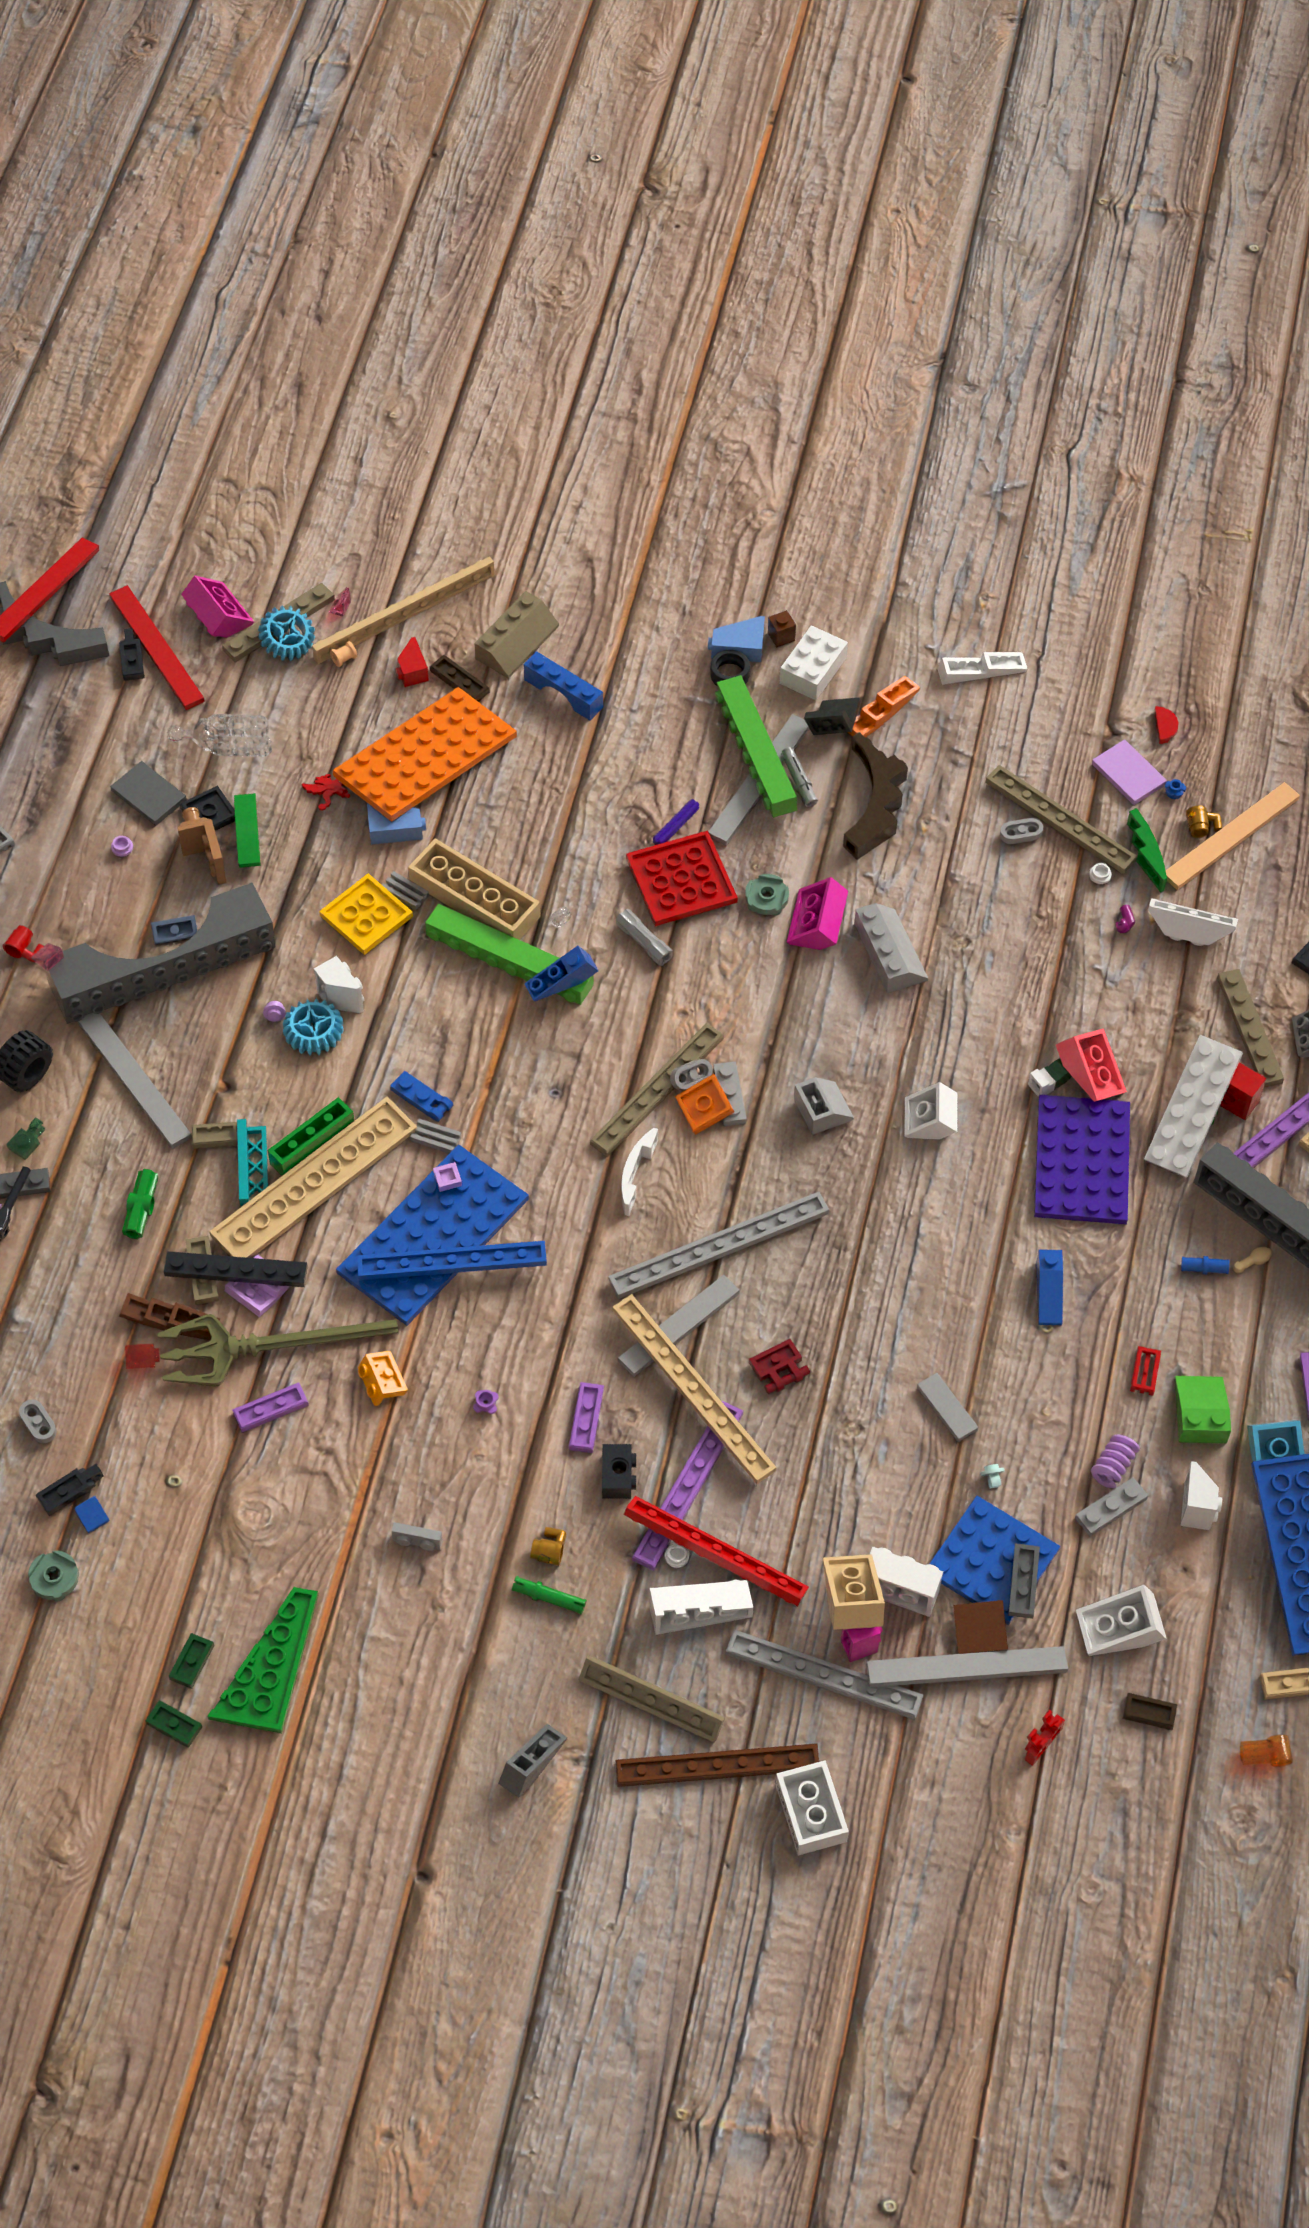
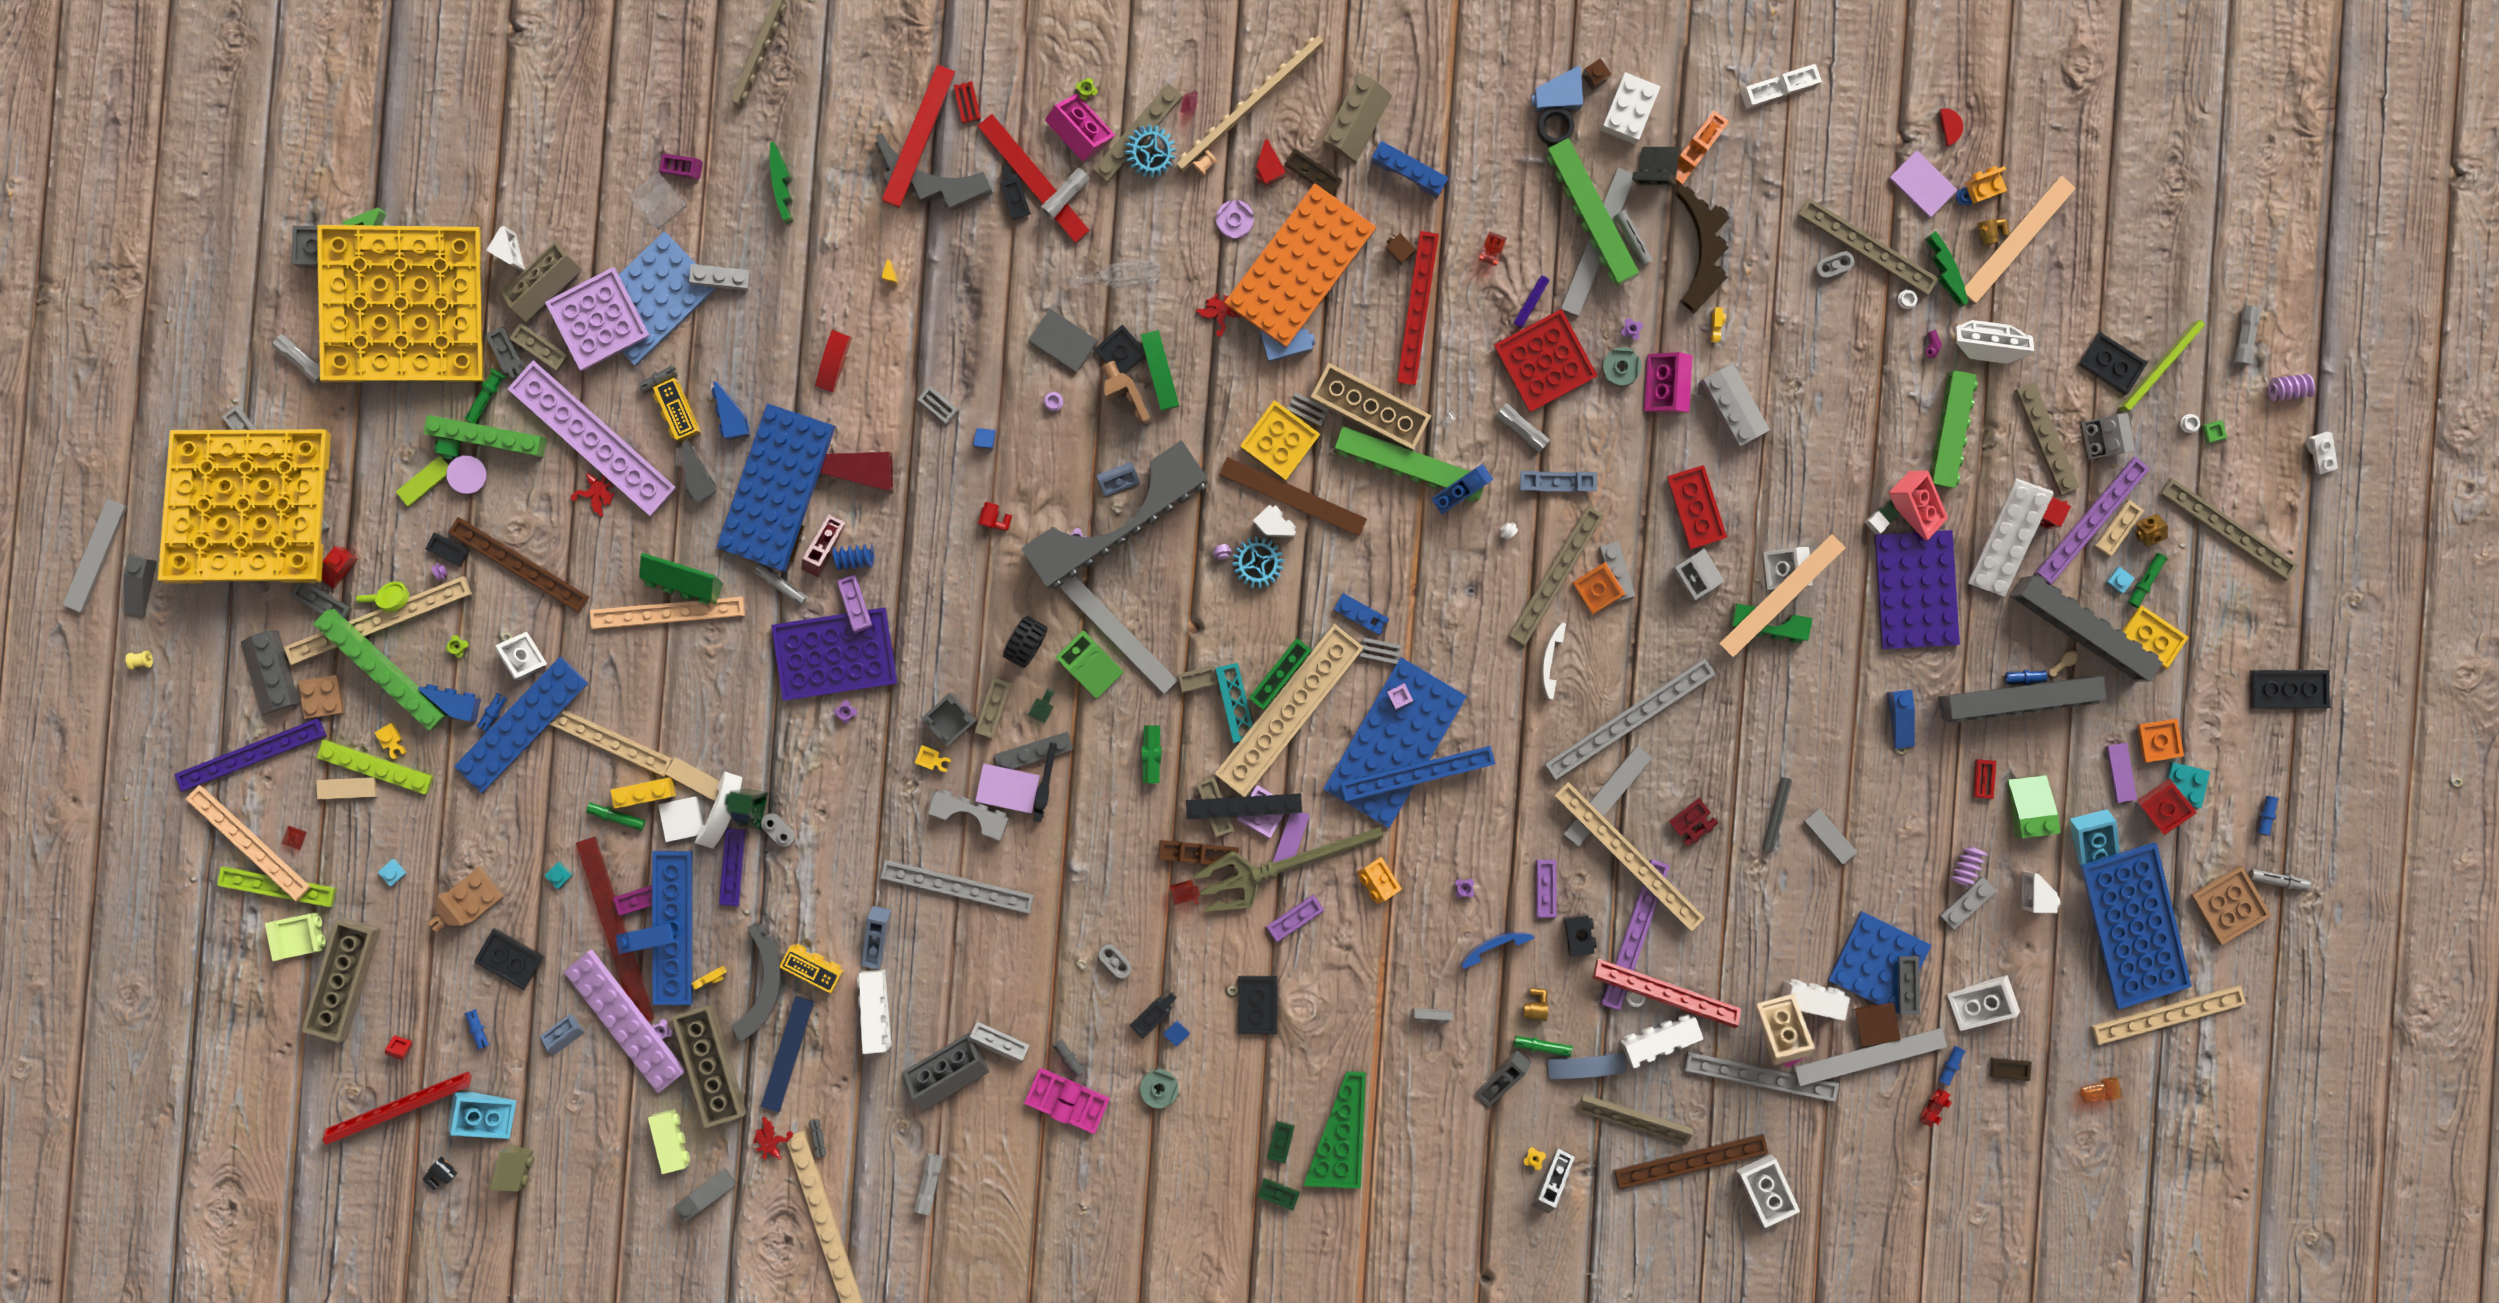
camera: 10 degrees left, 30 degrees up
(35, 872) = (984, 438): none -> blue slope
(48, 956) = (1025, 547): clear pink slope -> none
(91, 1098) = (1089, 664): none -> bright green slope
(104, 561) = (963, 86): none -> red tile
(197, 653) = (1065, 193): none -> light grey axle
(201, 1498) = (1257, 1005): none -> black tile
(233, 577) = (1080, 86): none -> lime plate
(289, 1313) = (1291, 836): none -> medium lavender tile
(364, 709) = (1234, 219): none -> lavender tile
(370, 971) = (1293, 496): none -> reddish brown tile
(491, 1624) = (1503, 1078): none -> dark grey slope
(508, 1464) = (1473, 956): none -> blue slope
(514, 1736) = (1535, 1163): none -> yellow plate
(539, 755) = (1400, 248): none -> reddish brown brick
(547, 812) = (1417, 308): none -> red plate
(602, 1626) = (1586, 1066): none -> sand blue slope
(609, 1033) = (1508, 530): none -> white plate
(642, 766) = (1492, 248): none -> clear red bracket
(674, 996) = (1558, 481): none -> sand blue slope
(689, 1073) = (1584, 561): light grey plate -> none
(784, 867) = (1632, 334): none -> medium lavender plate
(832, 1039) = (1696, 507): none -> red plate
(882, 864) = (1717, 320): none -> yellow plate
(884, 1373) = (1777, 814): none -> dark grey axle
(915, 1127) = (1782, 595): none -> light nougat tile
(927, 1176) = (1795, 626): none -> green arch
(992, 1473) = (1872, 891): light aqua plate -> none
(1072, 1693) = (1952, 1065): none -> blue pin
(1138, 1002) = (1952, 429): none -> bright green brick
(1196, 1279) = (2024, 697): none -> dark grey brick
(1198, 776) = (1986, 185): none -> light orange bracket

